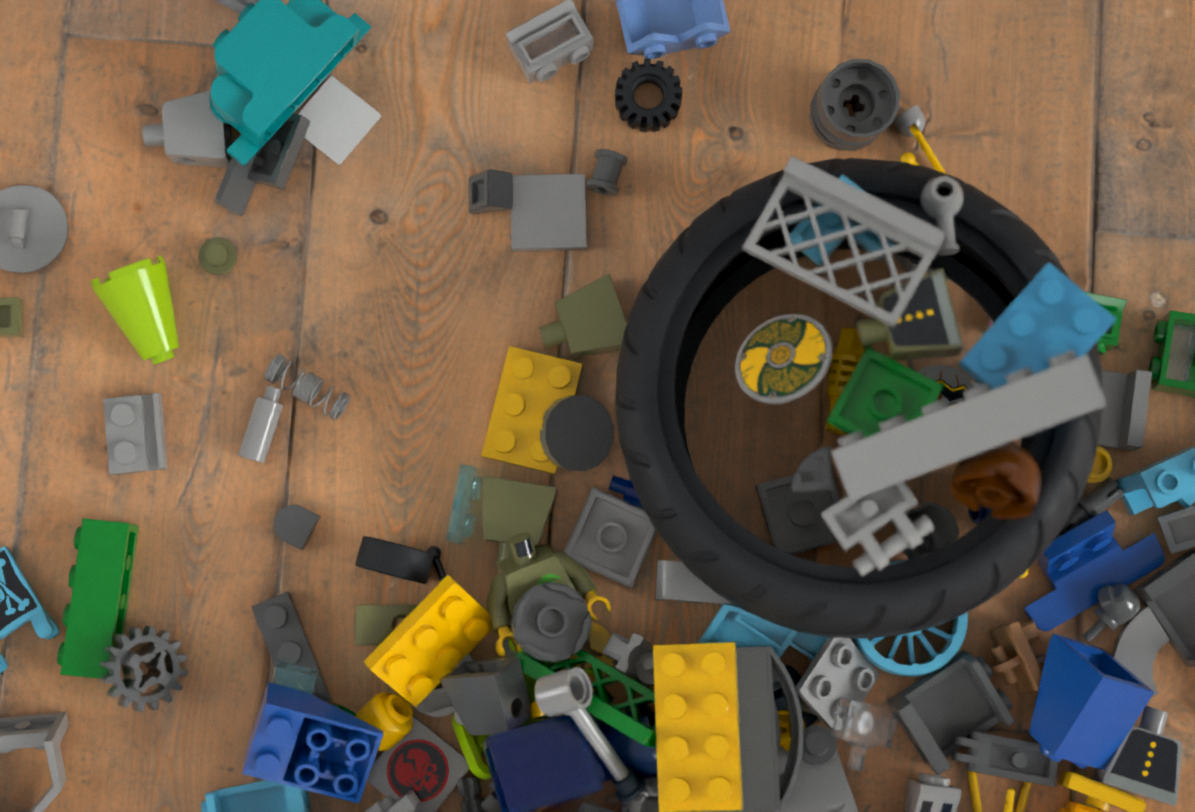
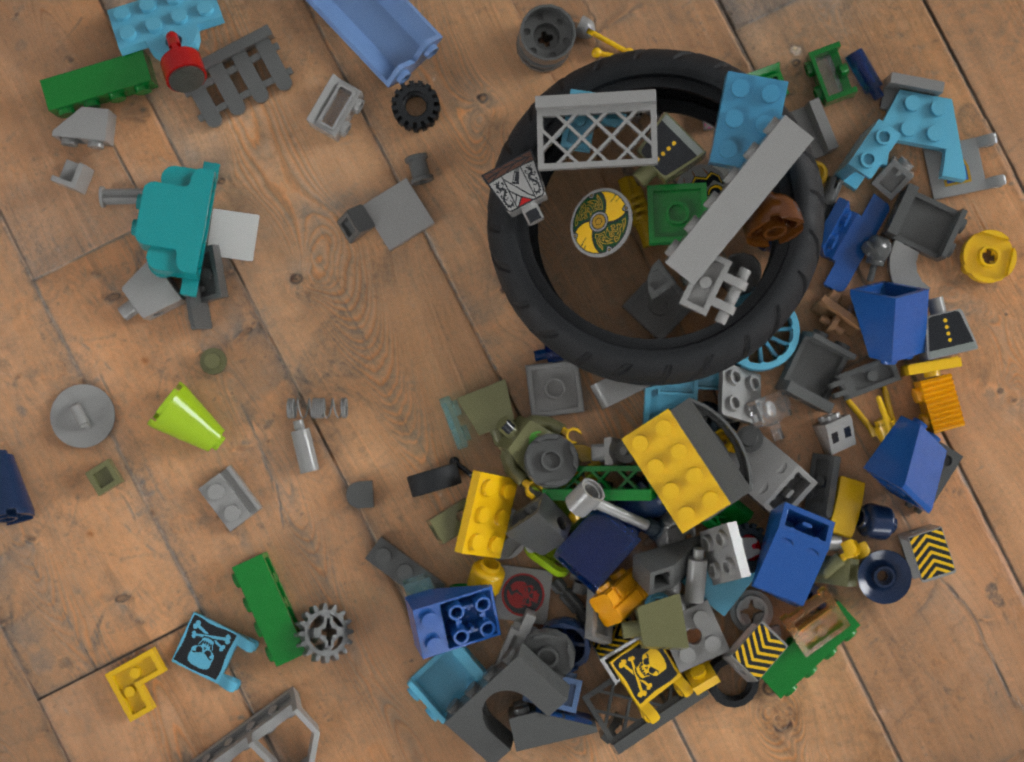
camera: 30 degrees left, 5 degrees up
(525, 392) = (461, 341): yellow plate -> none
(576, 433) = (496, 338): dark grey tile -> none
(588, 320) = (463, 266): olive torso -> none
(708, 256) = (519, 186): none -> torso
(943, 209) = (643, 74): light grey bar -> none

